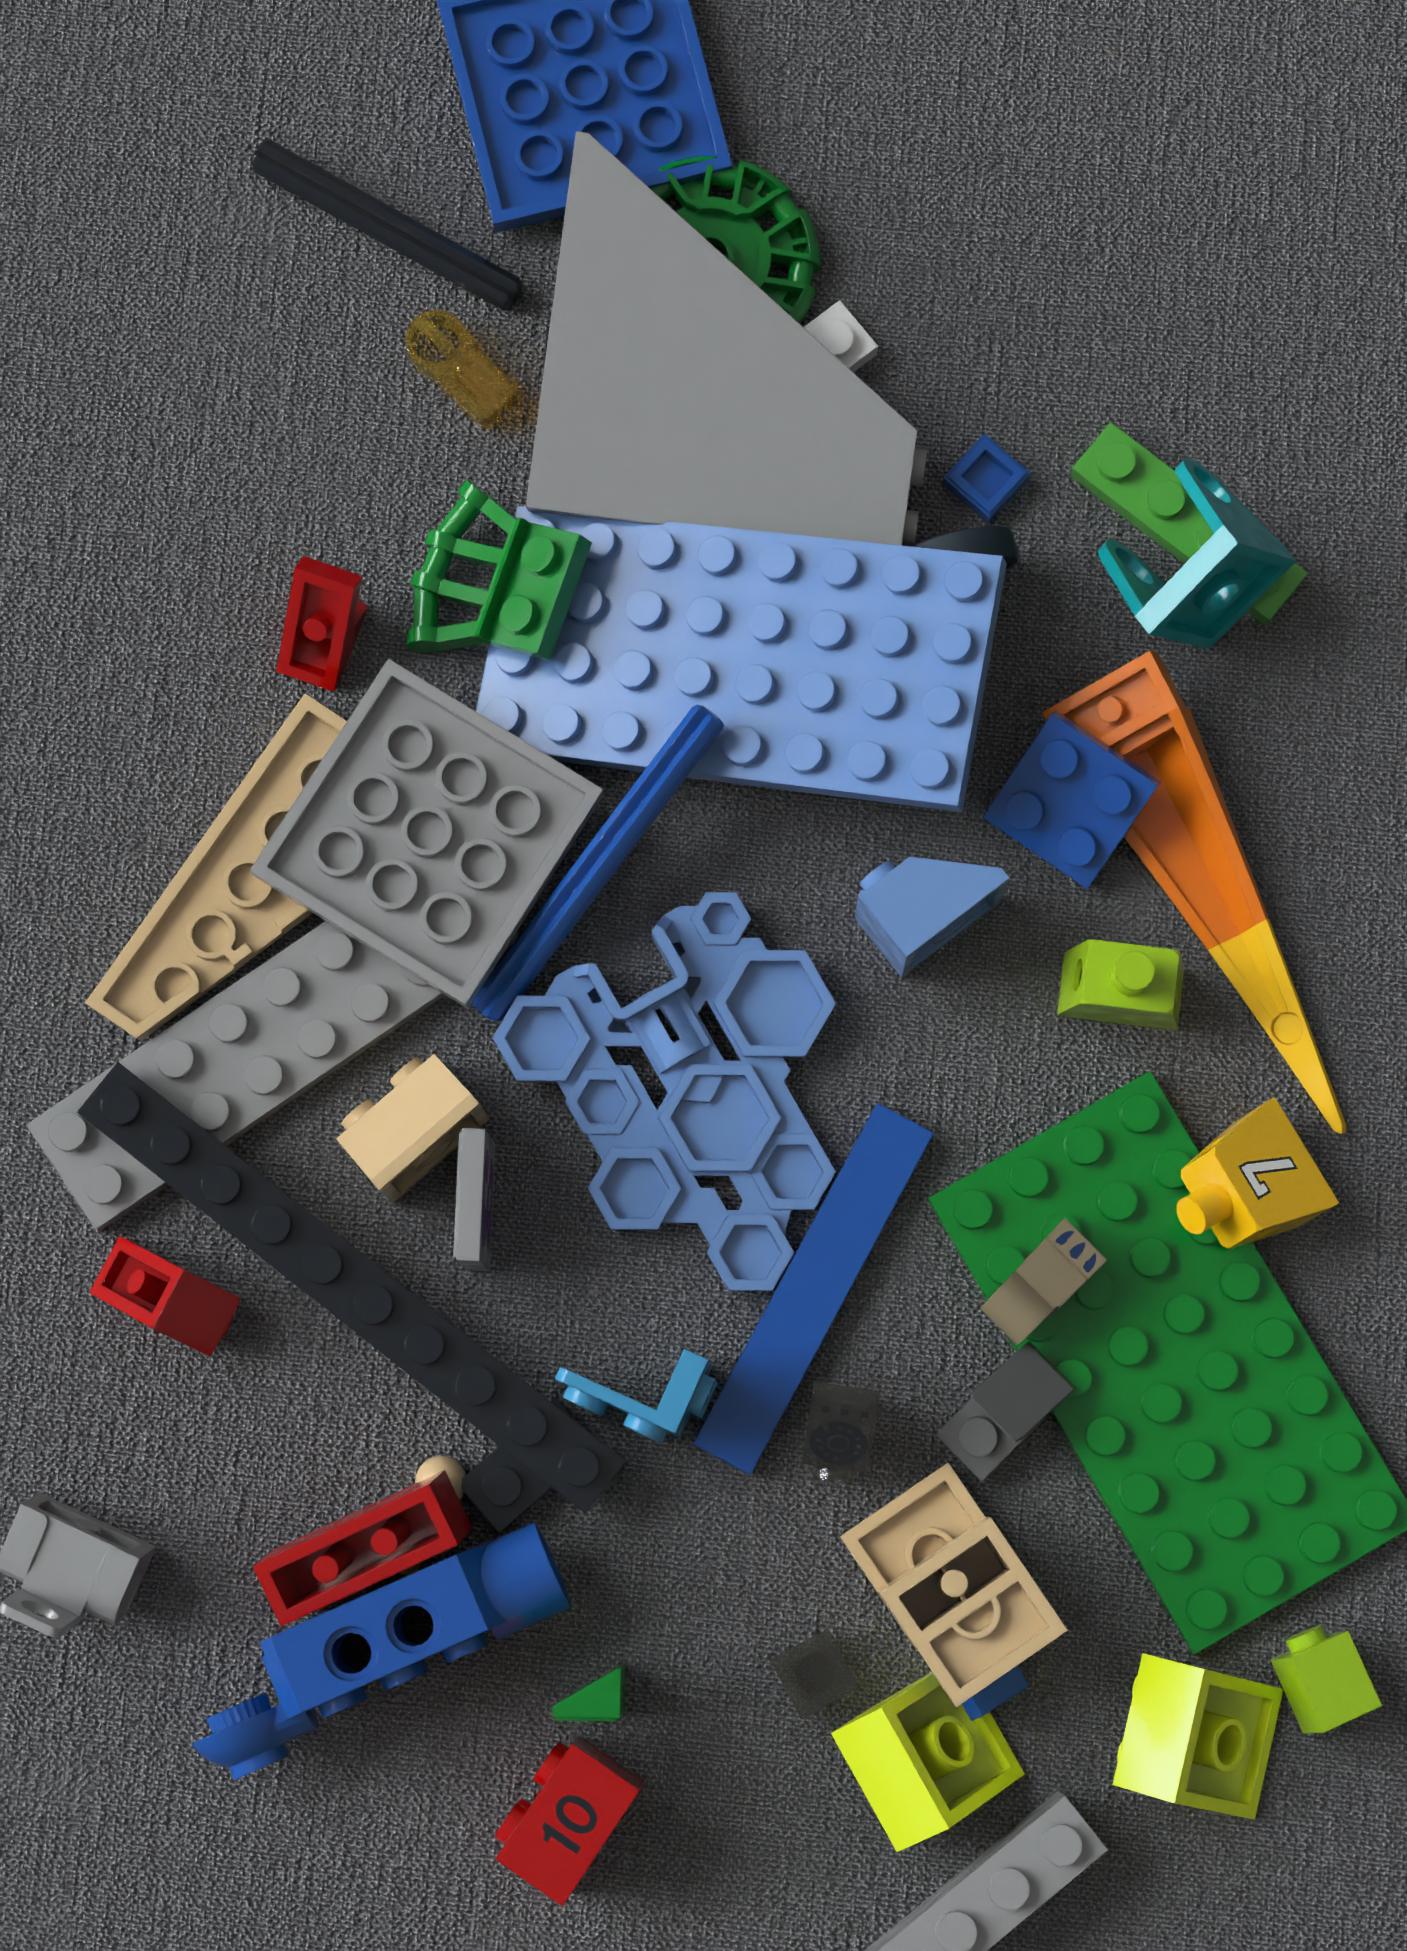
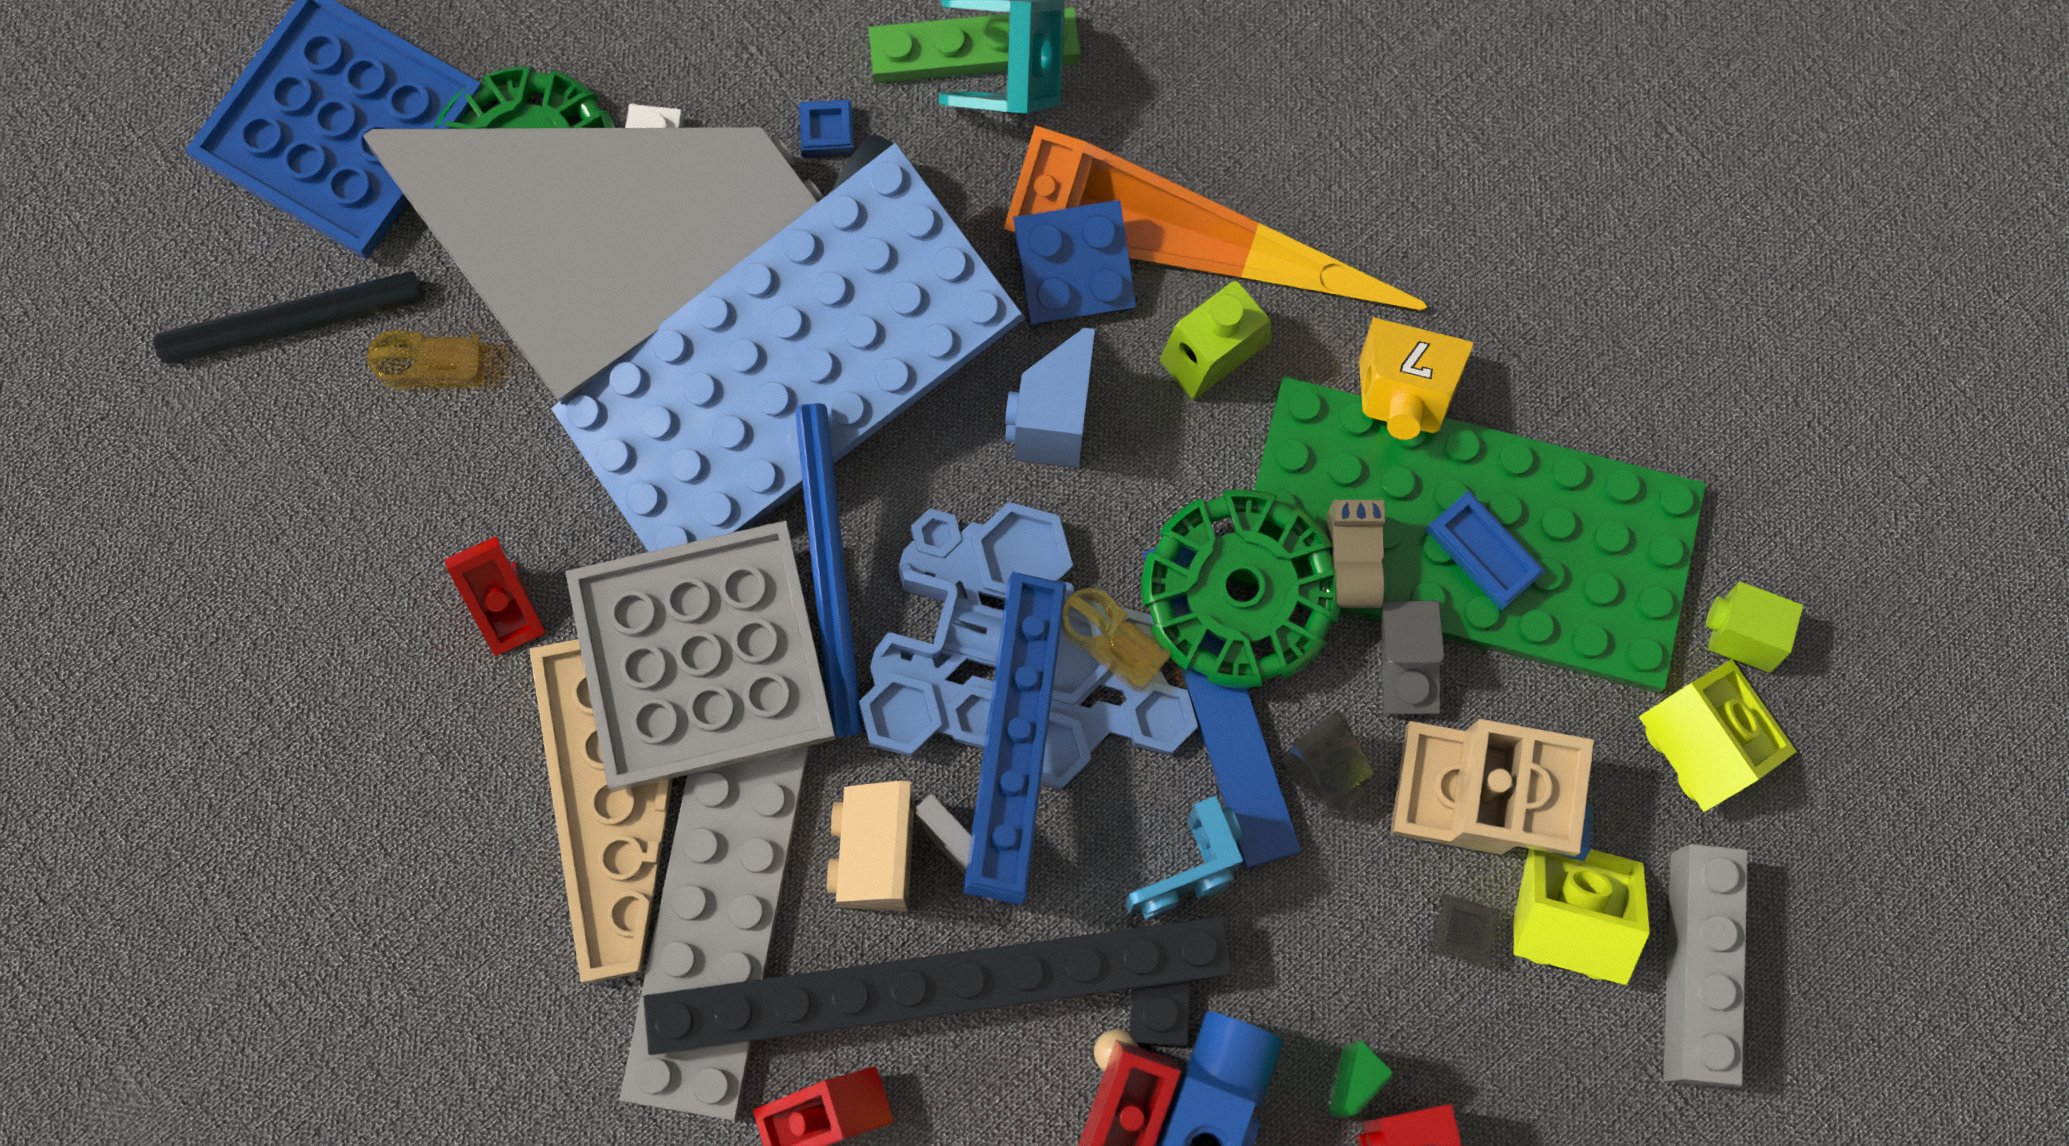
camera: 55 degrees left, 5 degrees down
(527, 592) = (614, 449): green plate -> none
(603, 1150) = (1015, 740): none -> blue tile
(772, 1161) = (1121, 646): none -> clear yellow piece
(880, 1204) = (1237, 621): none -> green plate
(1160, 1387) = (1484, 550): none -> blue tile

